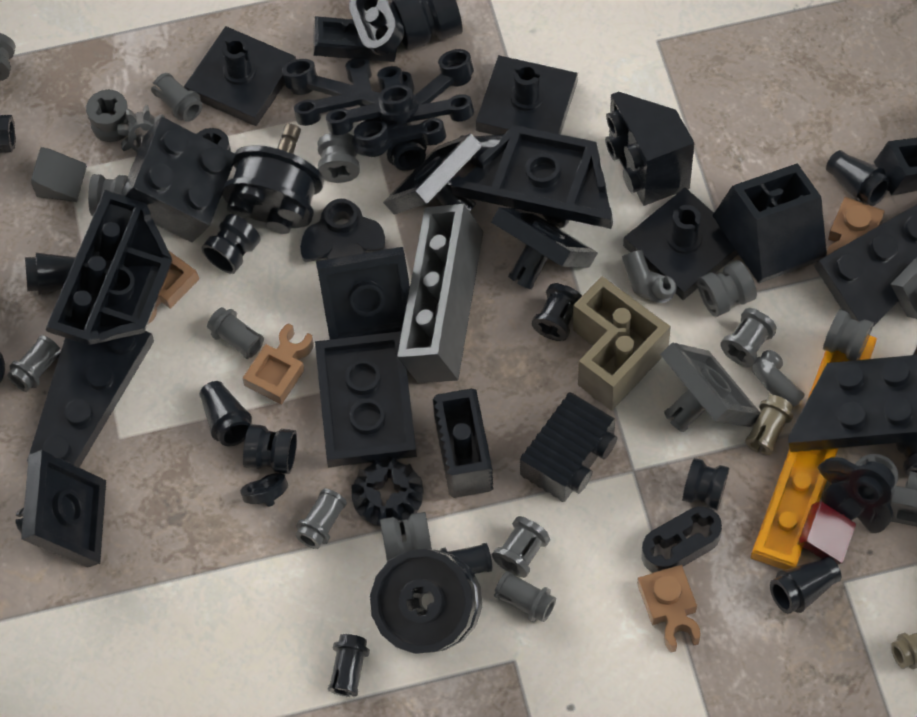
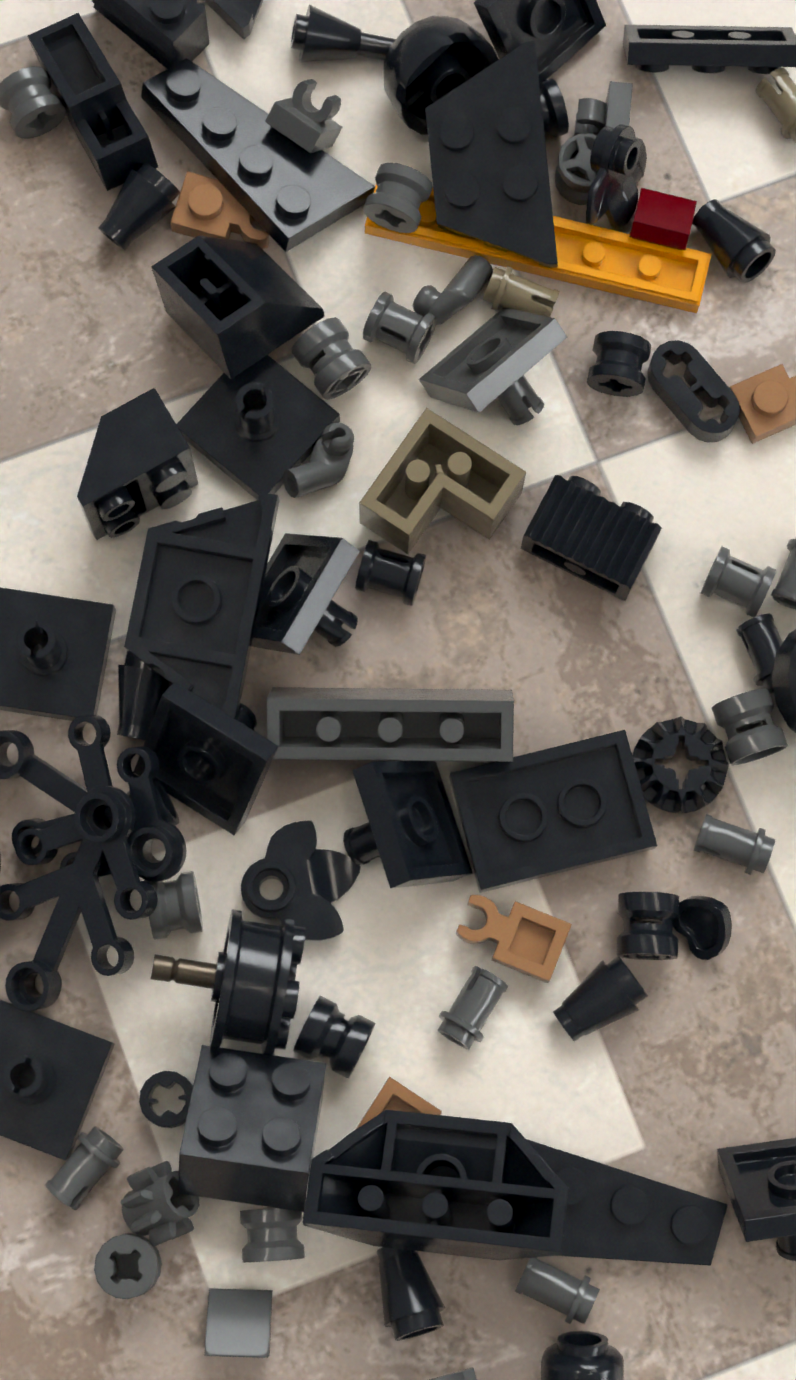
camera: 105 degrees left, 15 degrees up
(463, 443) = (614, 664): black brick -> none

